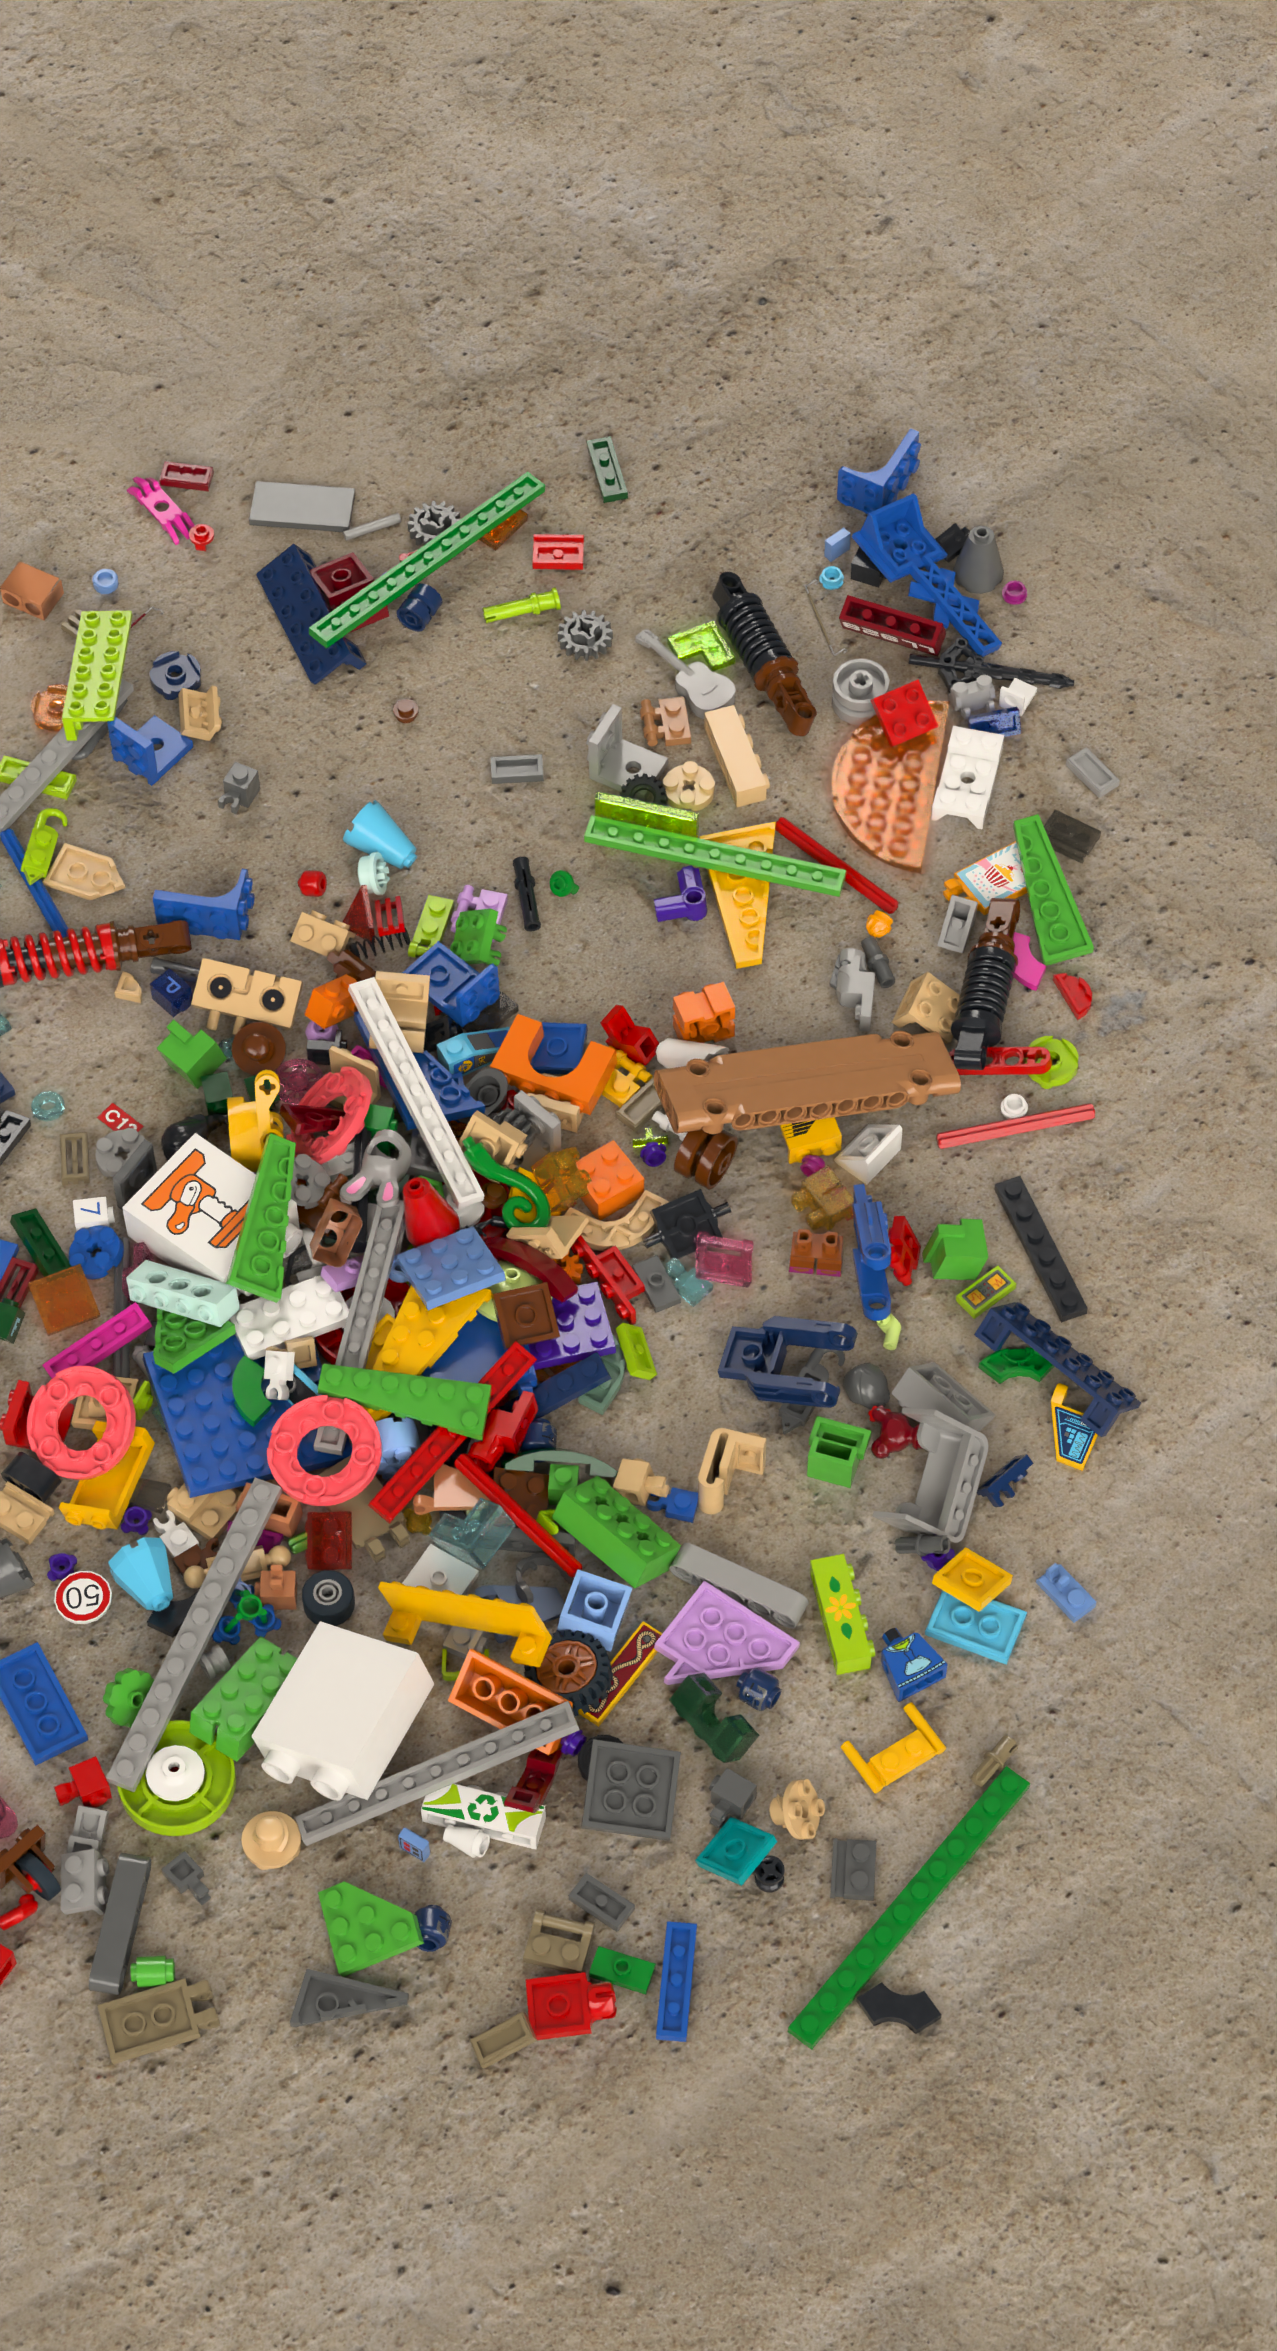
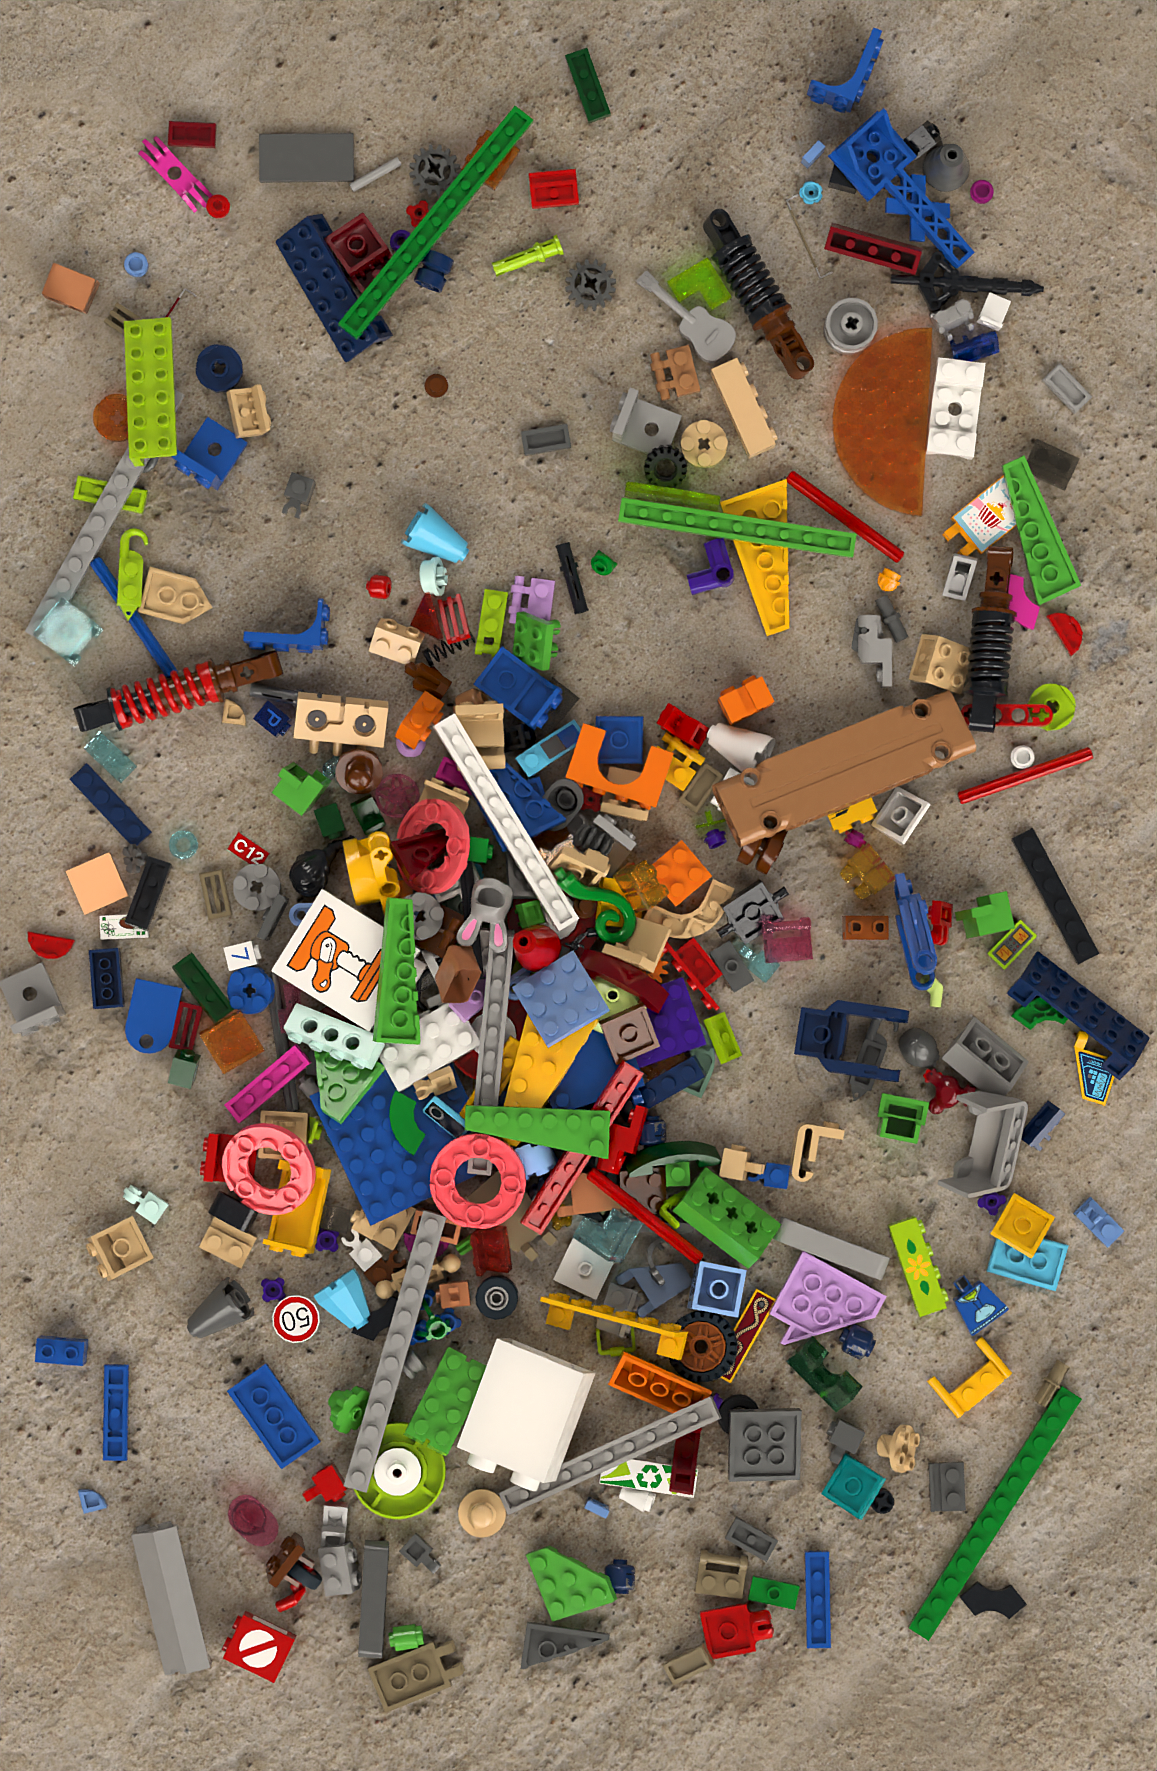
camera: 10 degrees left, 30 degrees up
(279, 1369) = (428, 1106): white plate -> none
(319, 1049) = (415, 765): black bracket -> none
(904, 713) = (894, 354): red plate -> none
(923, 1544) = (987, 1201): dark grey axle -> none

